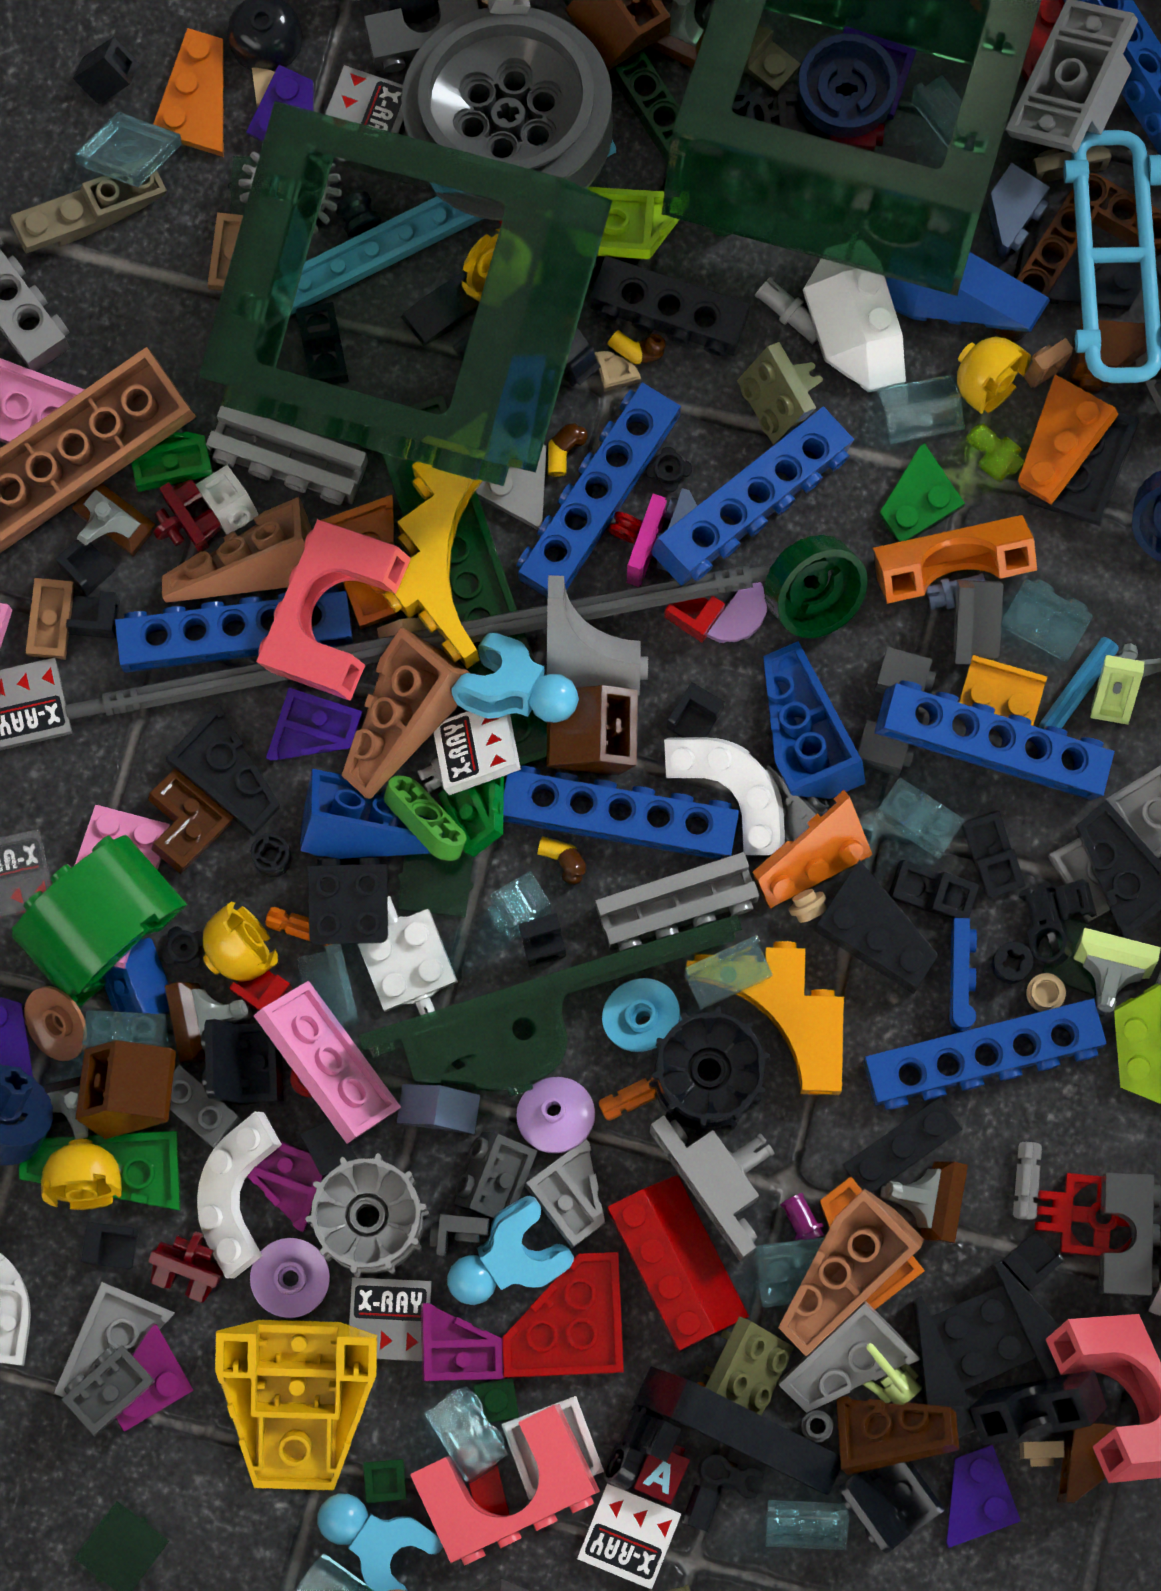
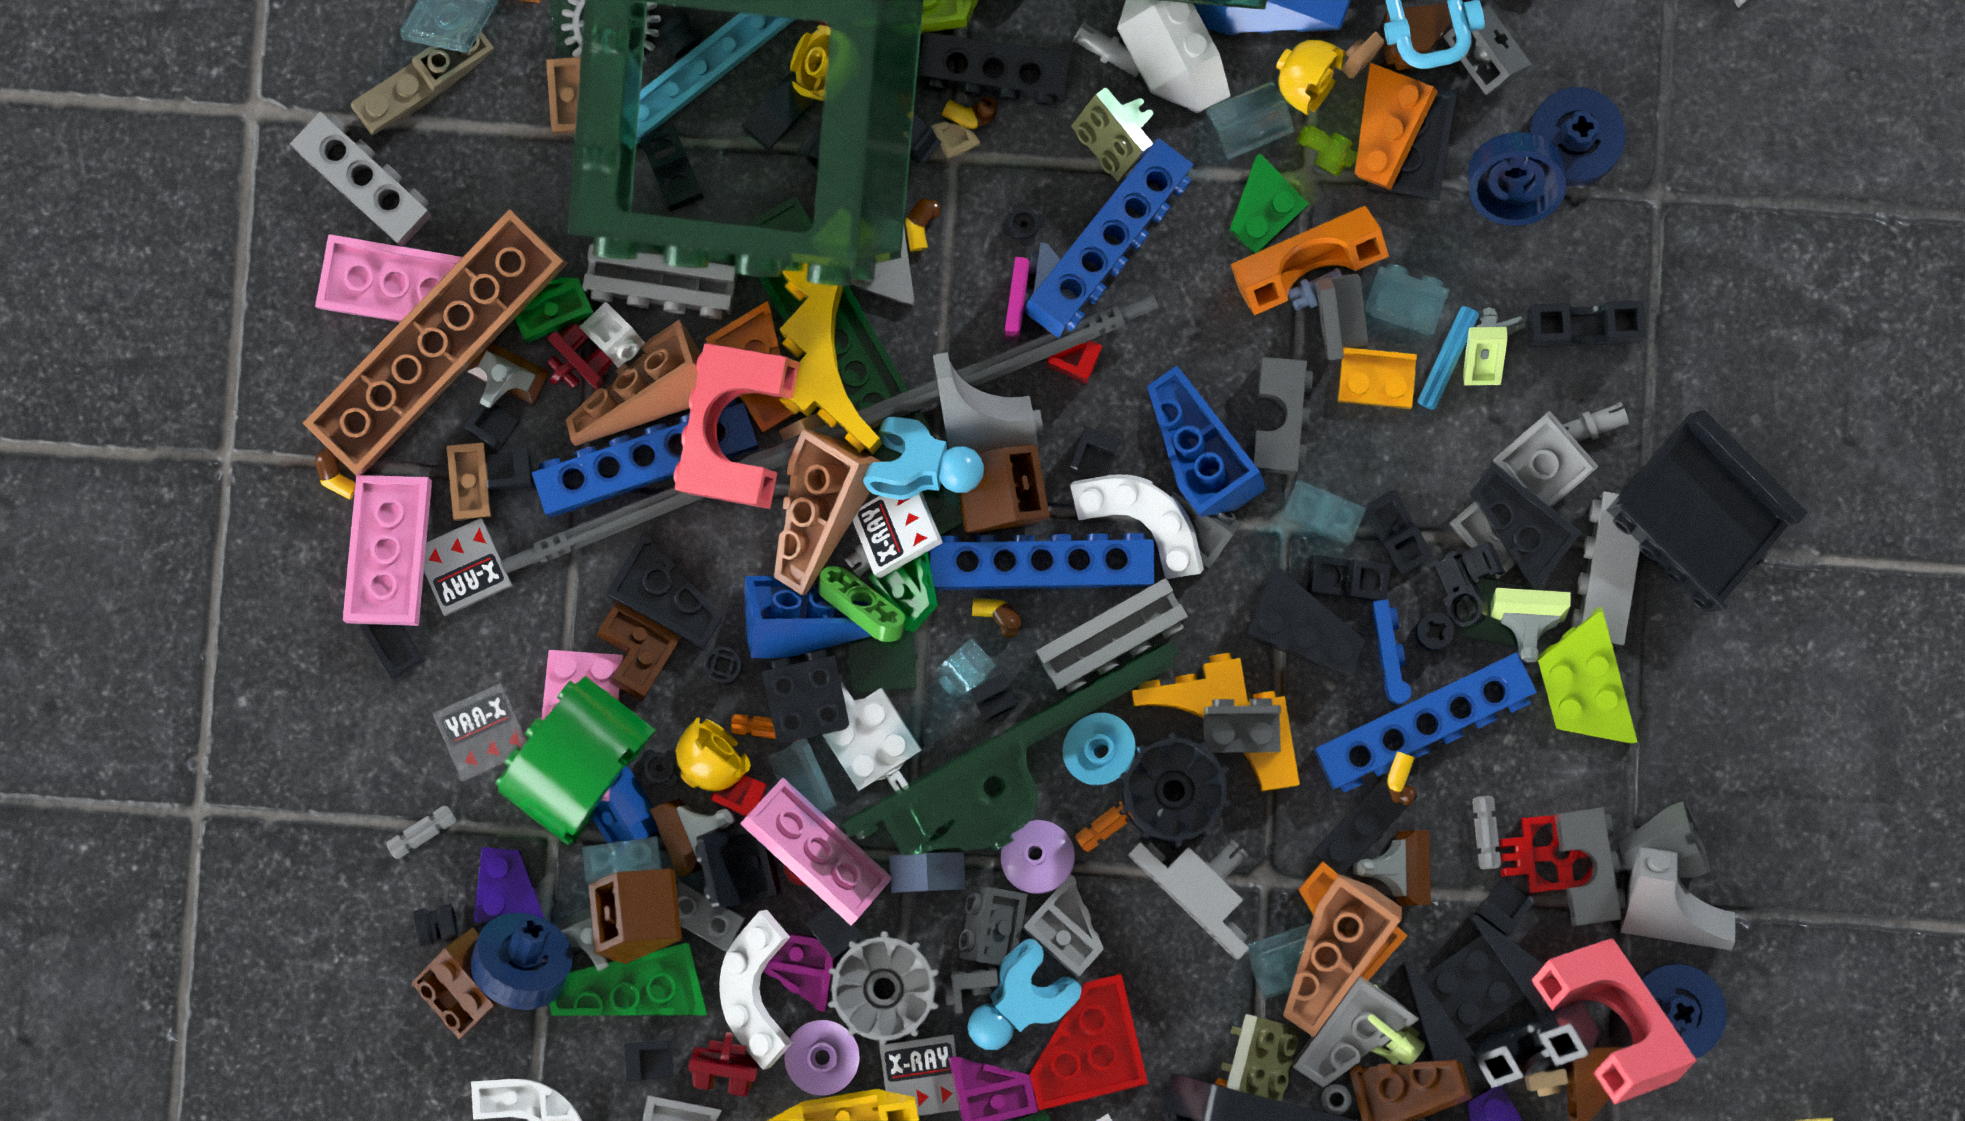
camera: 10 degrees left, 5 degrees up
(55, 1023) = (554, 864): nougat dish -> none
(81, 1175) = (610, 1003): yellow cylinder -> none
(312, 726) = (737, 536): dark purple wing -> none
(625, 527) = (994, 289): red bush -> none
(640, 406) = (1005, 177): blue brick -> none
(677, 1262) = (1178, 972): red slope -> none
(727, 972) = (1173, 696): clear light blue panel -> none
(741, 616) = (1119, 352): lavender tile -> none
(793, 1019) = (1242, 727): none -> dark grey bracket
(802, 1218) = (1285, 909): magenta pin -> none
(803, 574) = (1170, 302): dark green piece -> none
(808, 905) = (1234, 615): tan plate -> none
(820, 852) = (1239, 561): orange wing -> none
(899, 722) = (1287, 427): blue brick -> none
(944, 1104) = (1397, 778): none -> yellow arm
(1045, 992) = (1471, 653): tan plate -> none

